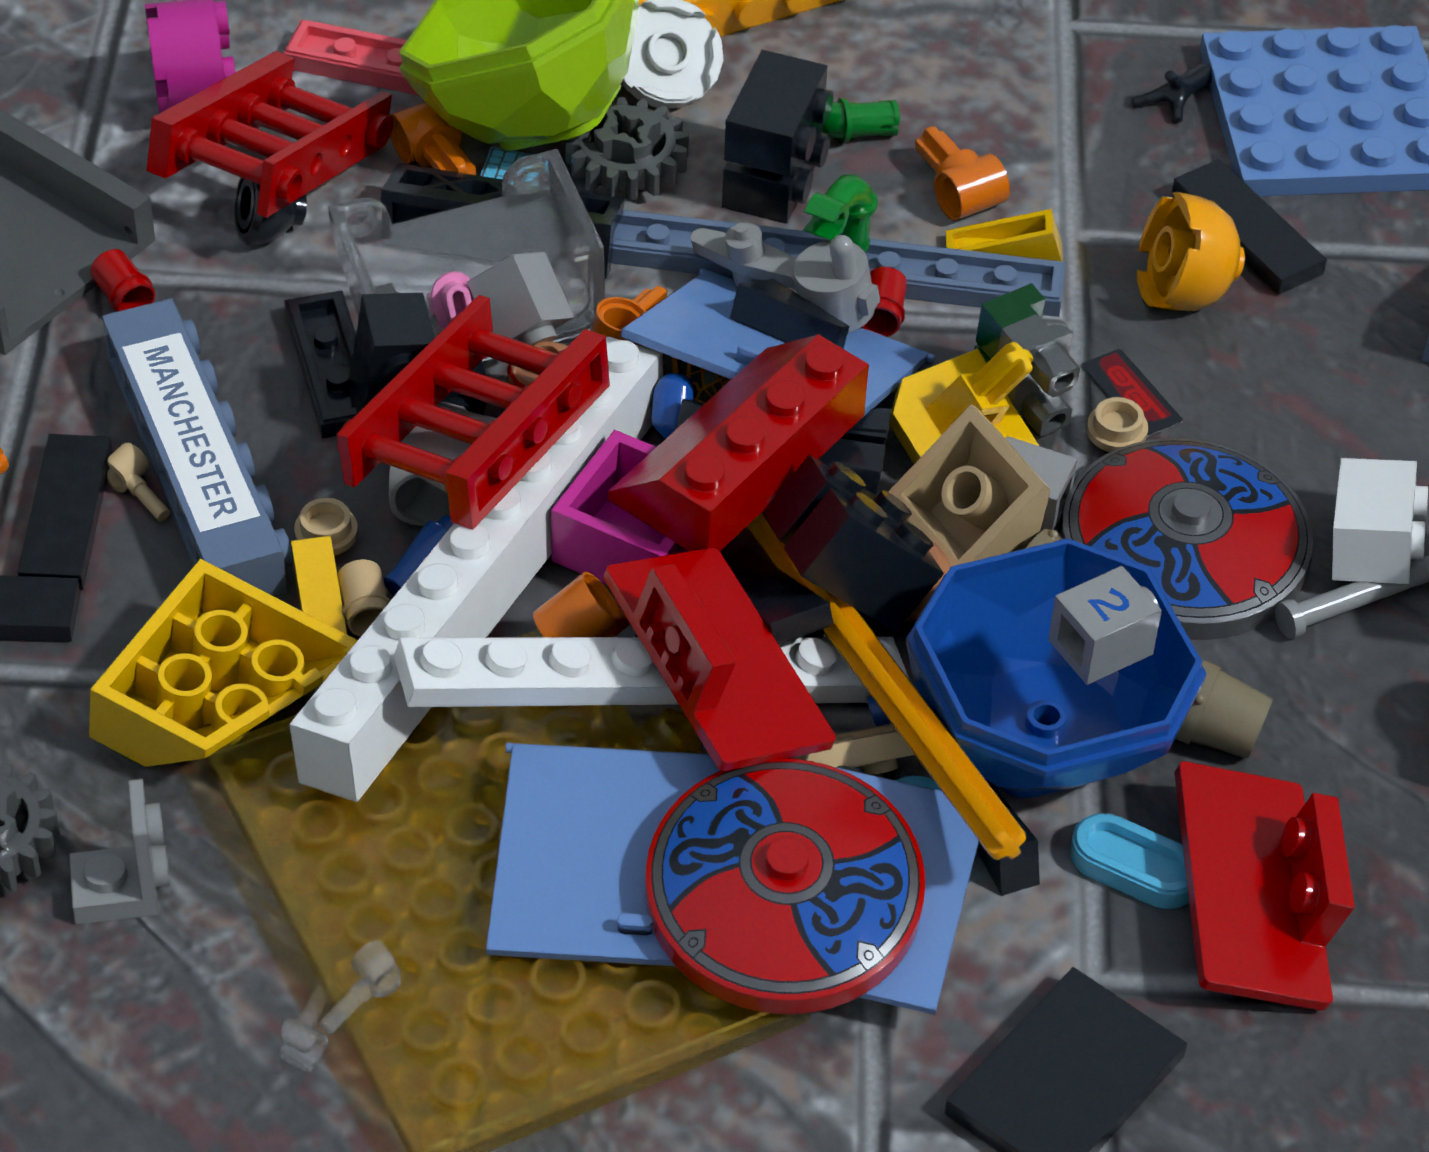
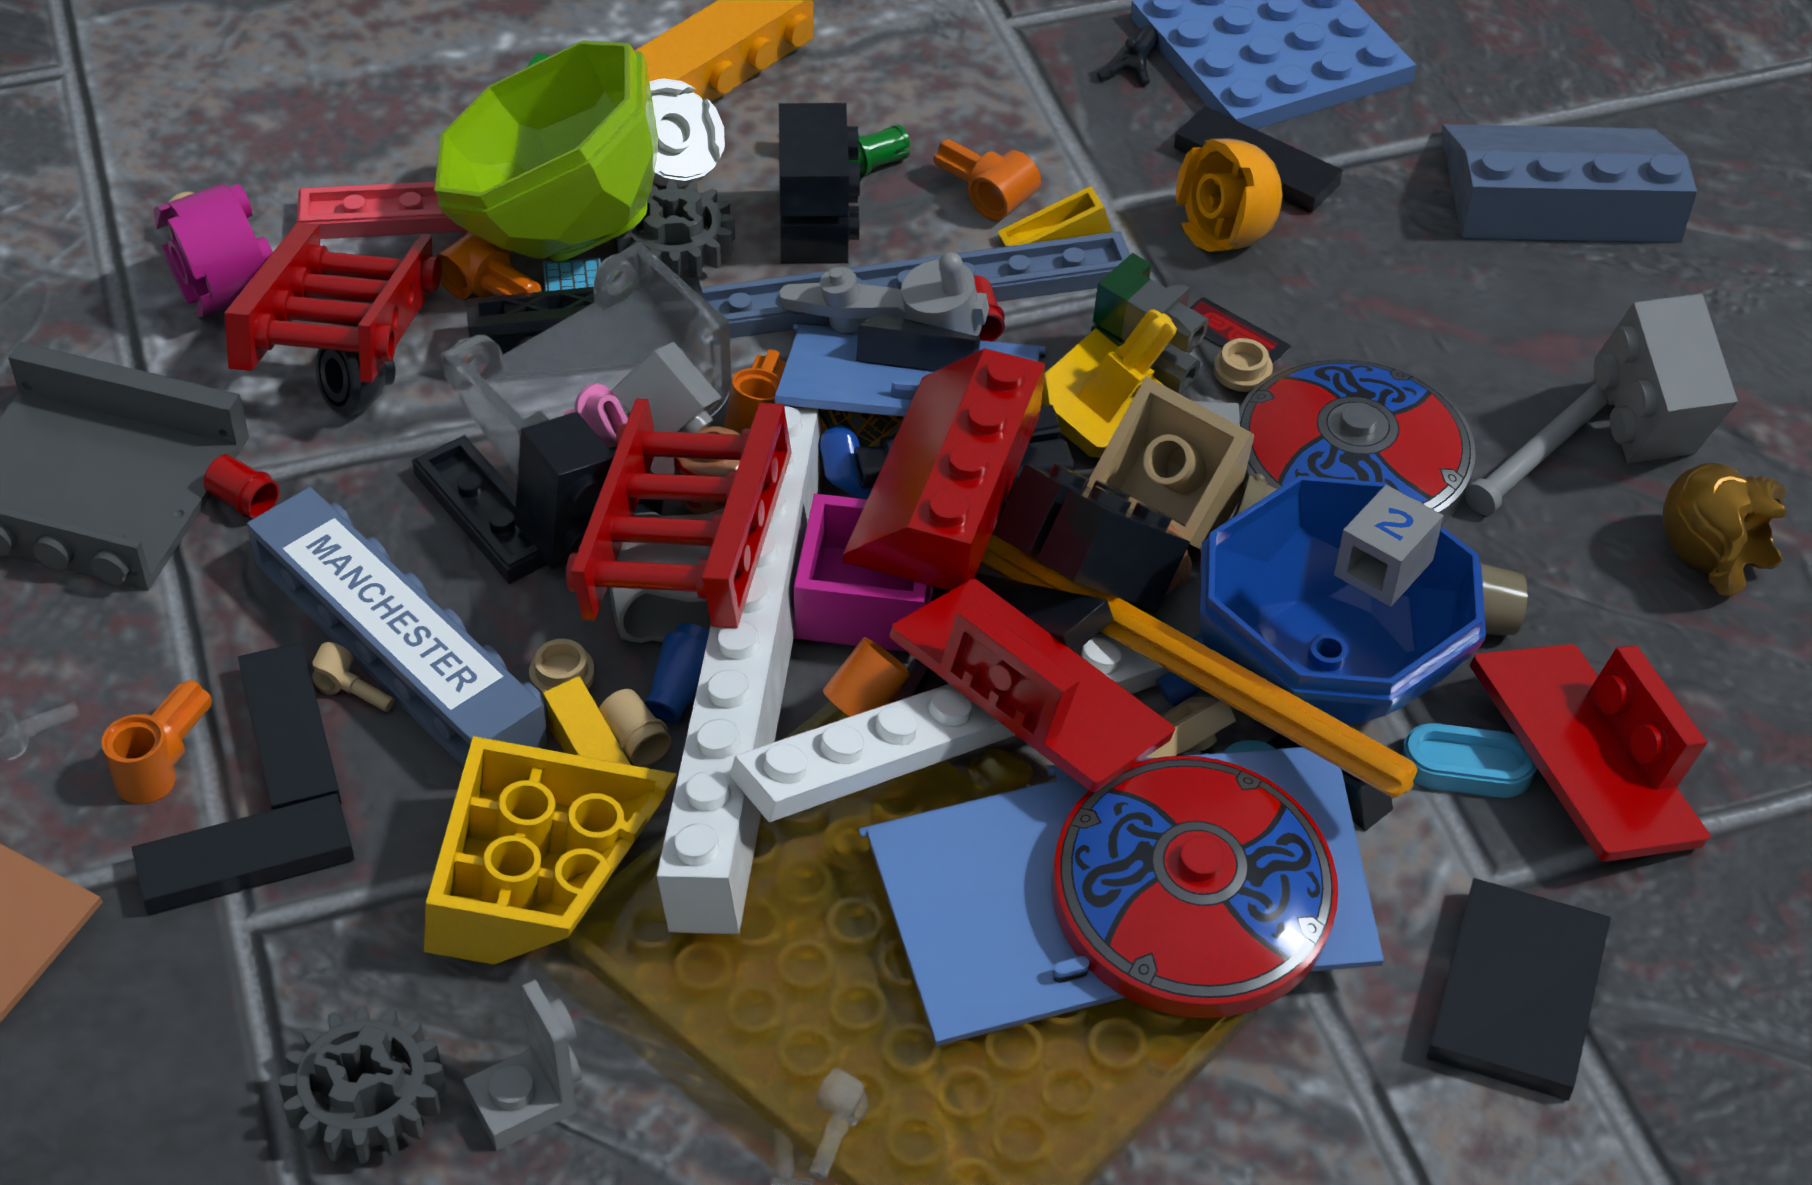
camera: 20 degrees left, 0 degrees up
(843, 211) = (921, 232): green piece -> none
(1378, 521) = (1519, 387): white brick -> none

